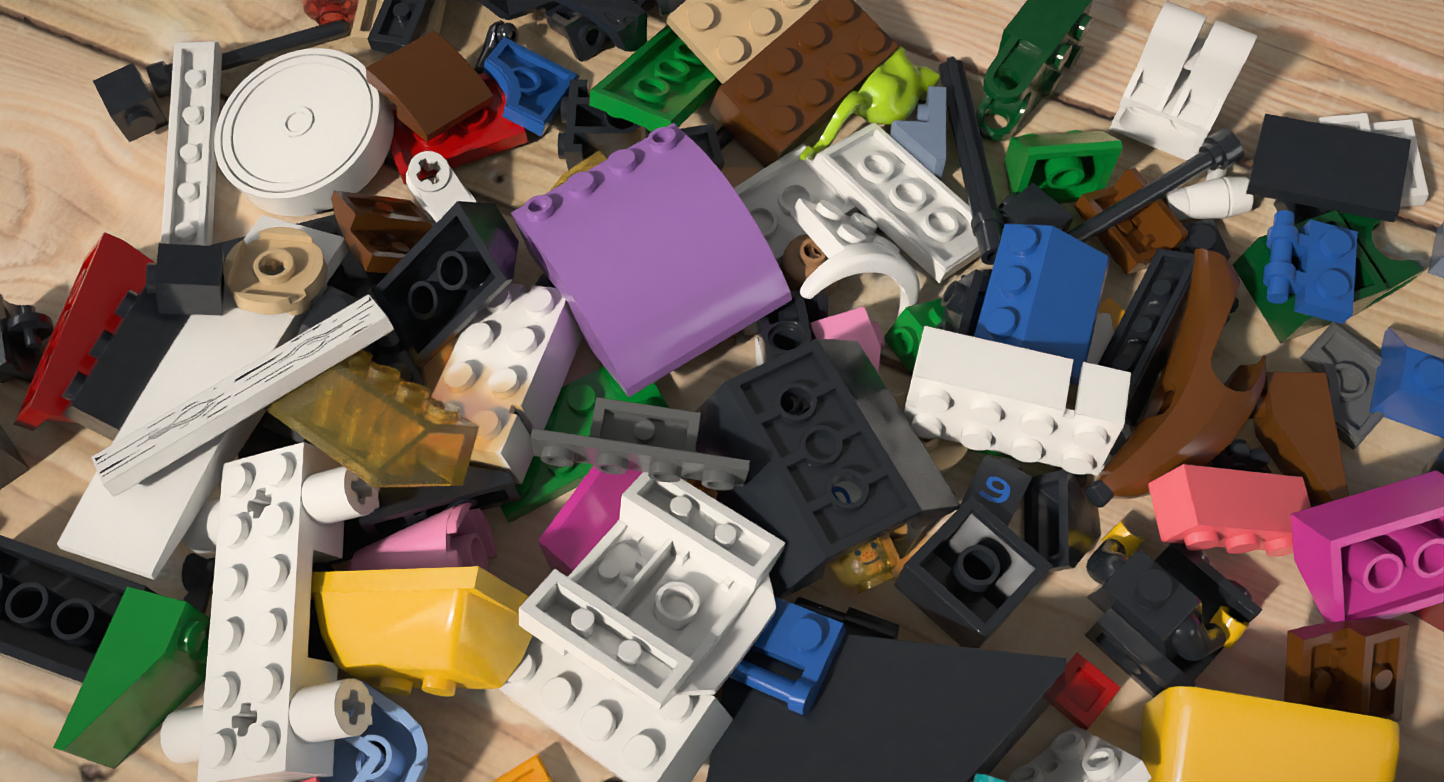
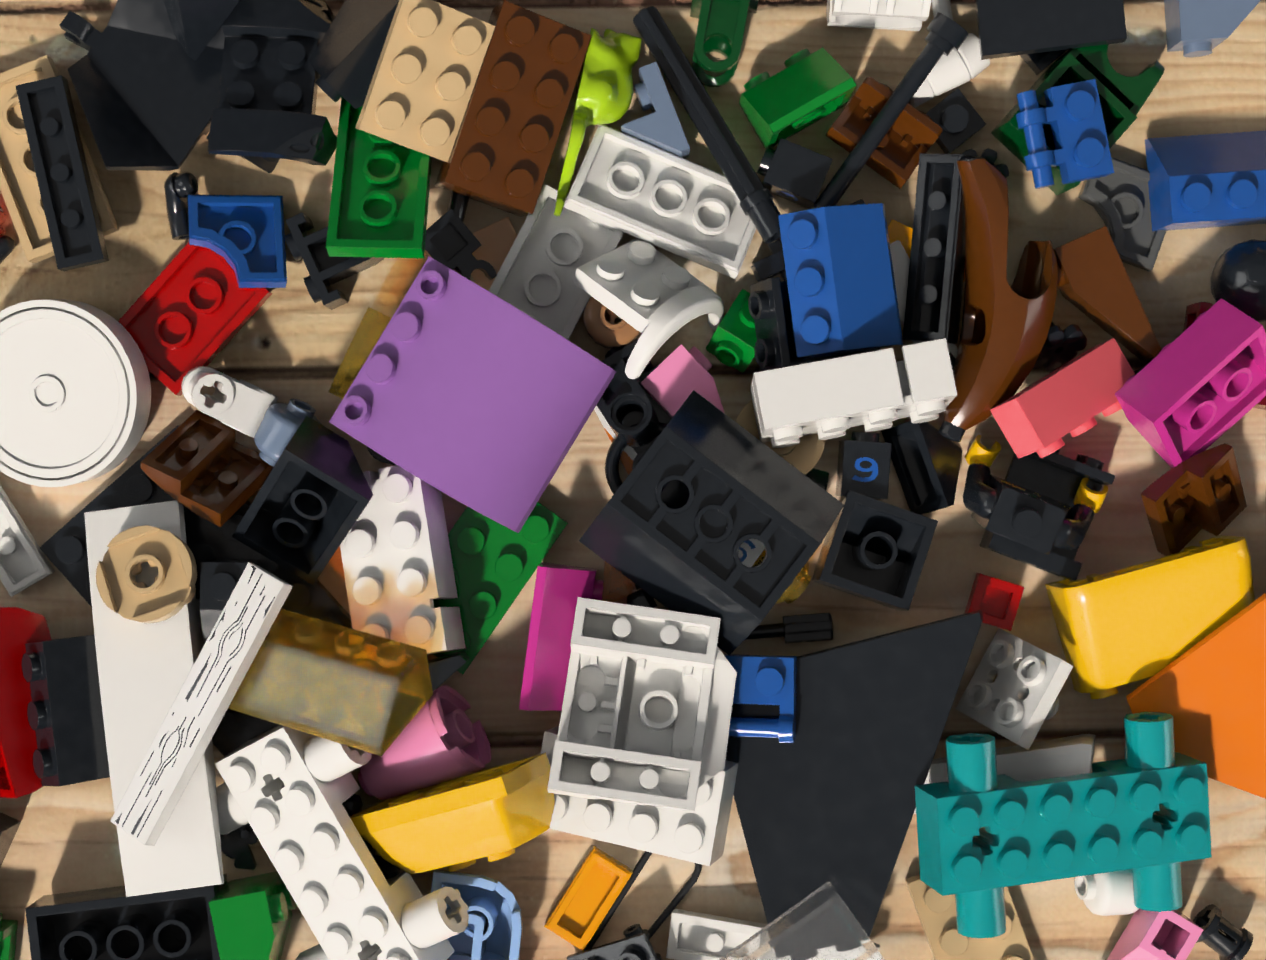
camera: 25 degrees left, 25 degrees up
(187, 279) = (80, 627): black brick -> none
(430, 85) = (154, 294): reddish brown slope -> none
(641, 440) = (563, 591): dark grey bracket -> none

